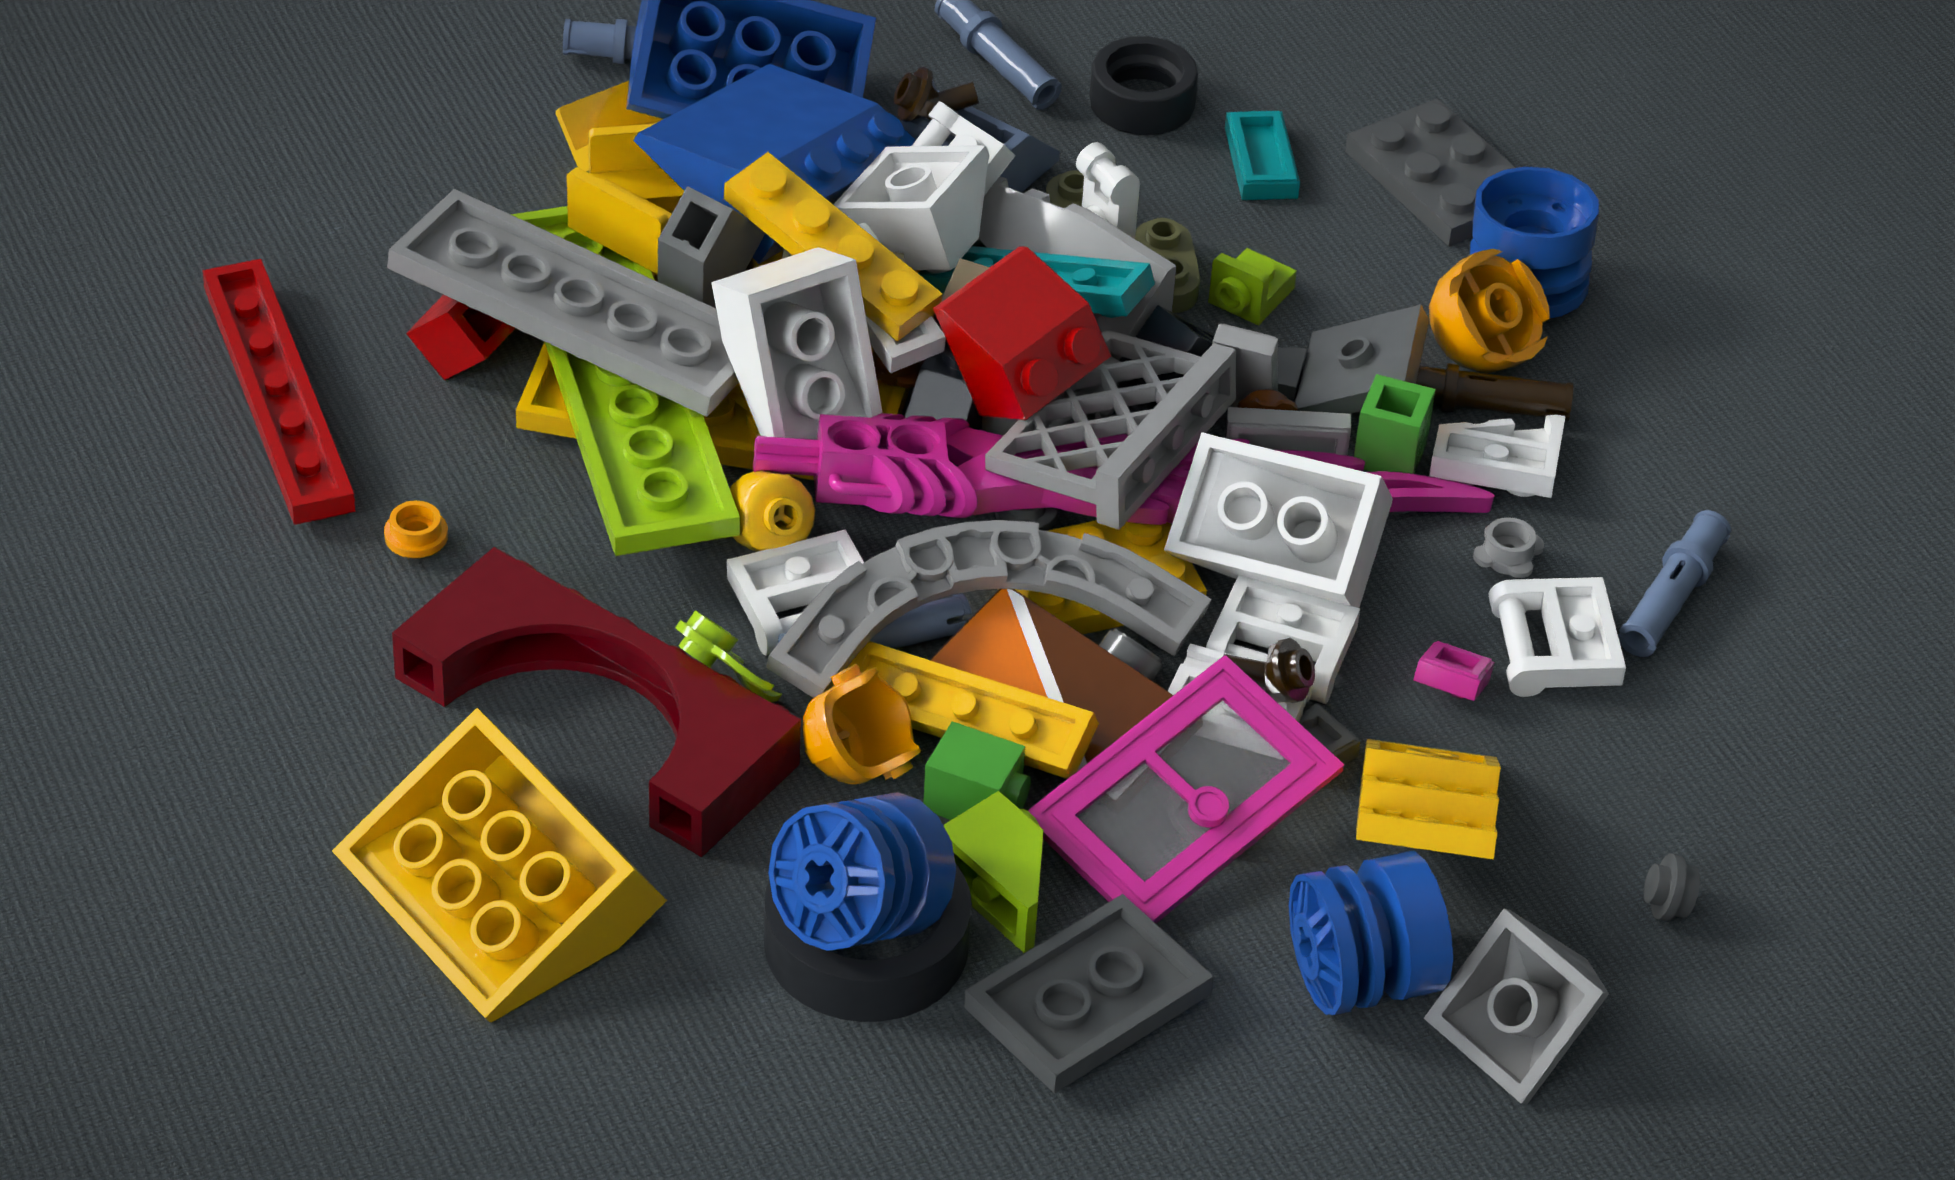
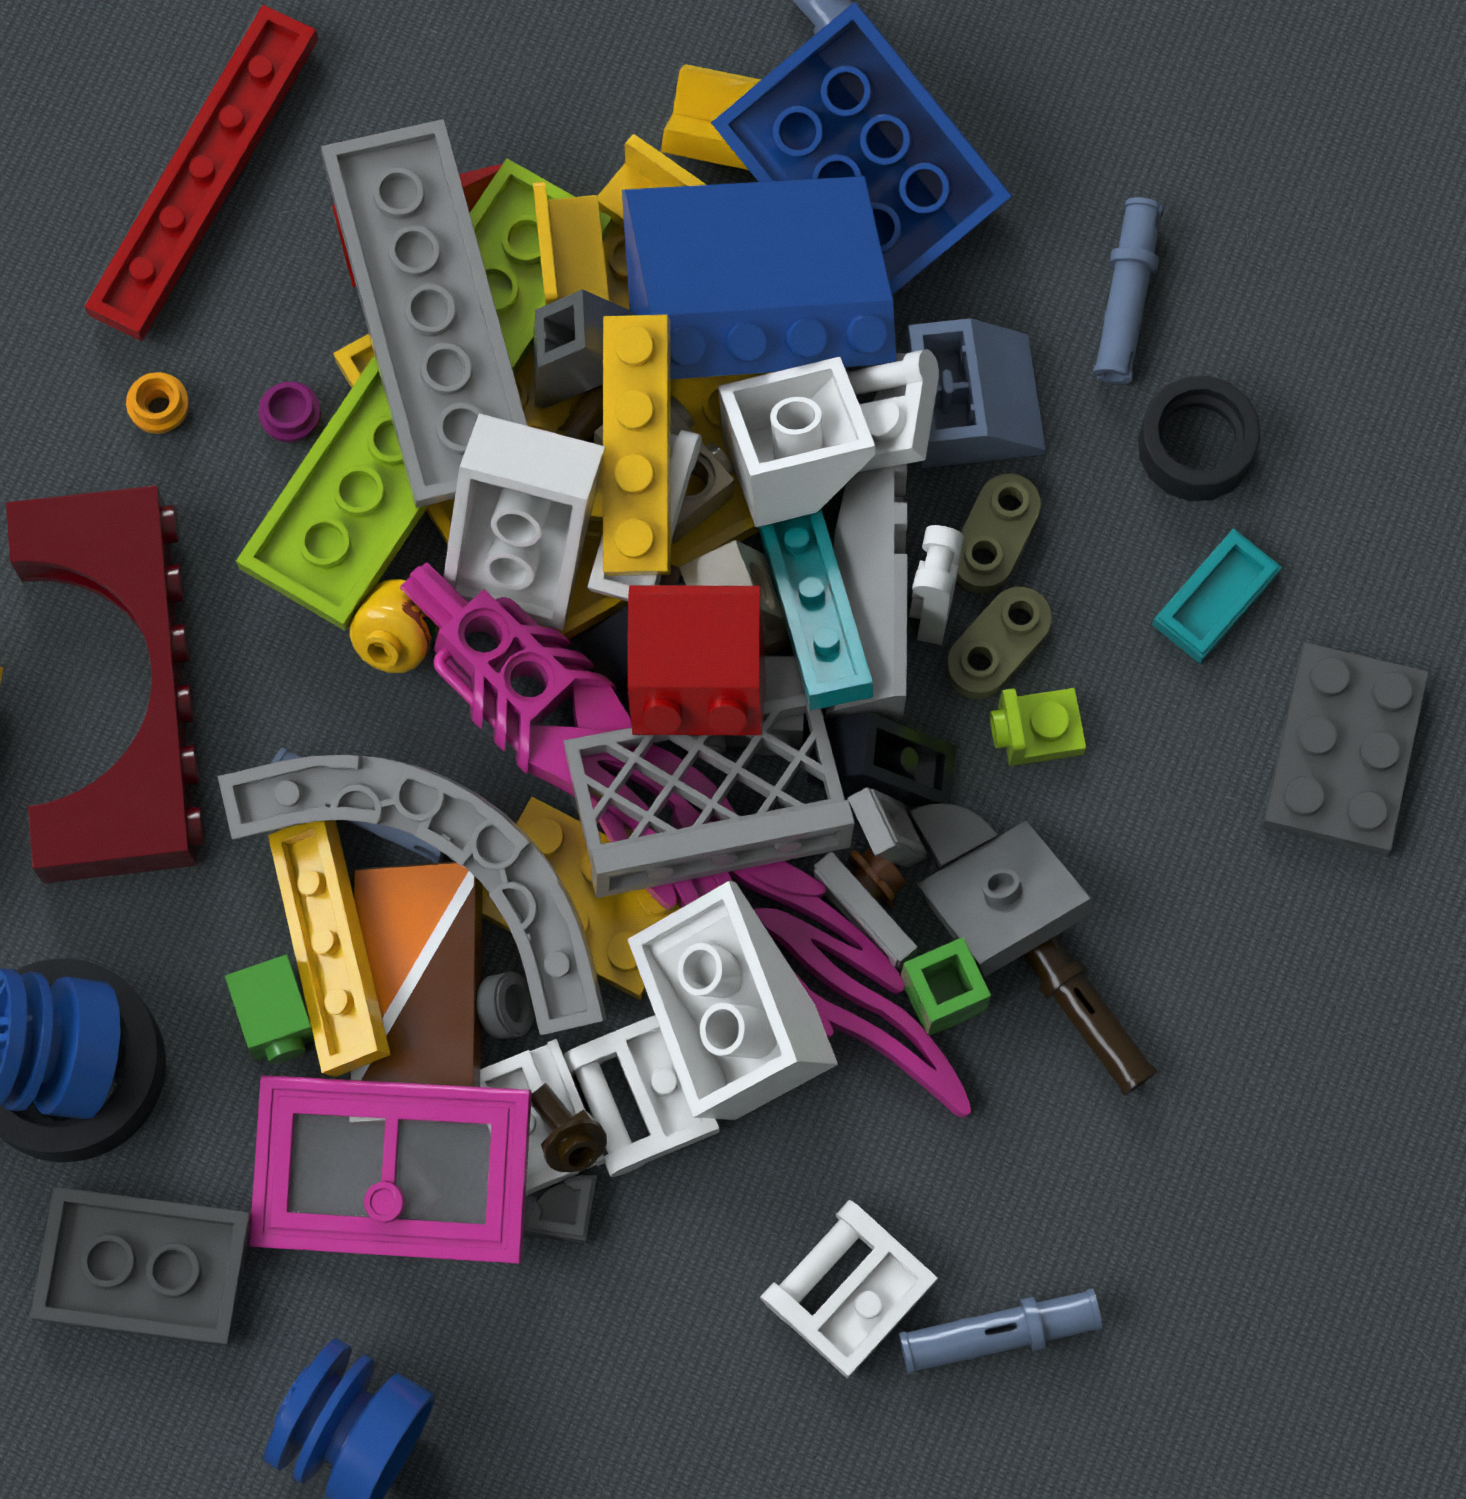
camera: 50 degrees right, 30 degrees up
(521, 469) = (289, 412): none -> magenta plate
(710, 641) = (210, 737): lime plate -> none
(786, 580) = (360, 698): white plate -> none
(859, 728) = (228, 896): light orange cap -> none
(918, 95) = (929, 327): dark brown plate -> none
(1001, 861) = (201, 1103): lime slope -> none
(1429, 799) = (530, 1357): yellow slope -> none
(1454, 670) = (729, 1247): dark pink tile -> none
(1489, 312) = (1155, 951): light orange cylinder -> none
(1499, 456) = (1021, 1083): white wing -> none
(1509, 547) = (925, 1156): light grey plate -> none
(1543, 222) = (1305, 886): blue wheel -> none

